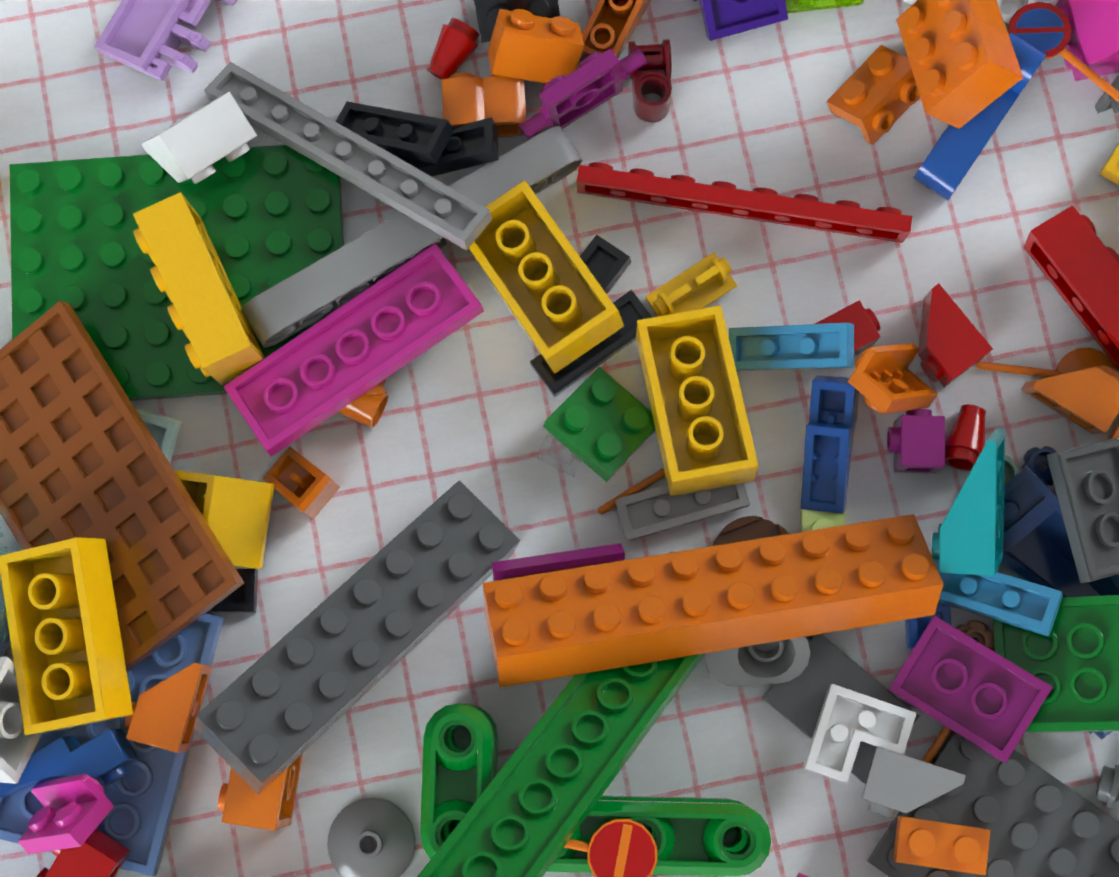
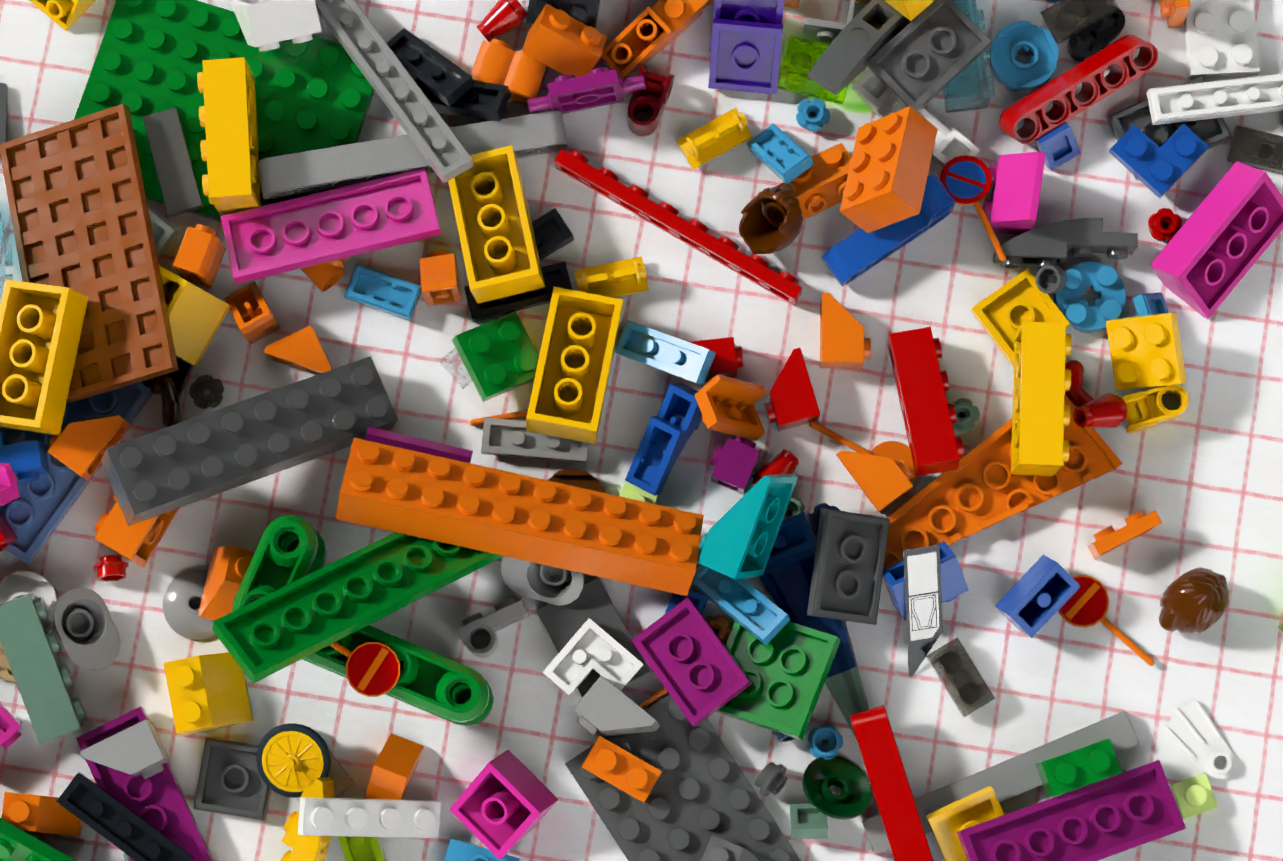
camera: 20 degrees right, 0 degrees up
(144, 347) = (173, 162): none -> dark grey tile
(216, 441) = (199, 256): none -> orange brick
(246, 619) = (169, 397): none -> dark brown arm
(253, 842) = (111, 568): none -> red plate
(276, 585) = (200, 385): none -> clear smoke plate
(376, 506) = (300, 351): none -> orange slope
(395, 807) = (223, 580): none -> orange slope
(441, 402) = (383, 292): none -> dark azure plate
(501, 361) = (440, 278): none -> orange slope
(731, 715) = (505, 615): none -> light grey plate
(740, 91) = (715, 138): none -> yellow hinge
(823, 80) = (780, 153): none -> dark azure plate
(832, 36) = (812, 123): none -> dark azure plate
(845, 154) = (771, 220): none -> reddish brown hair
(972, 254) = (841, 337): none -> orange slope

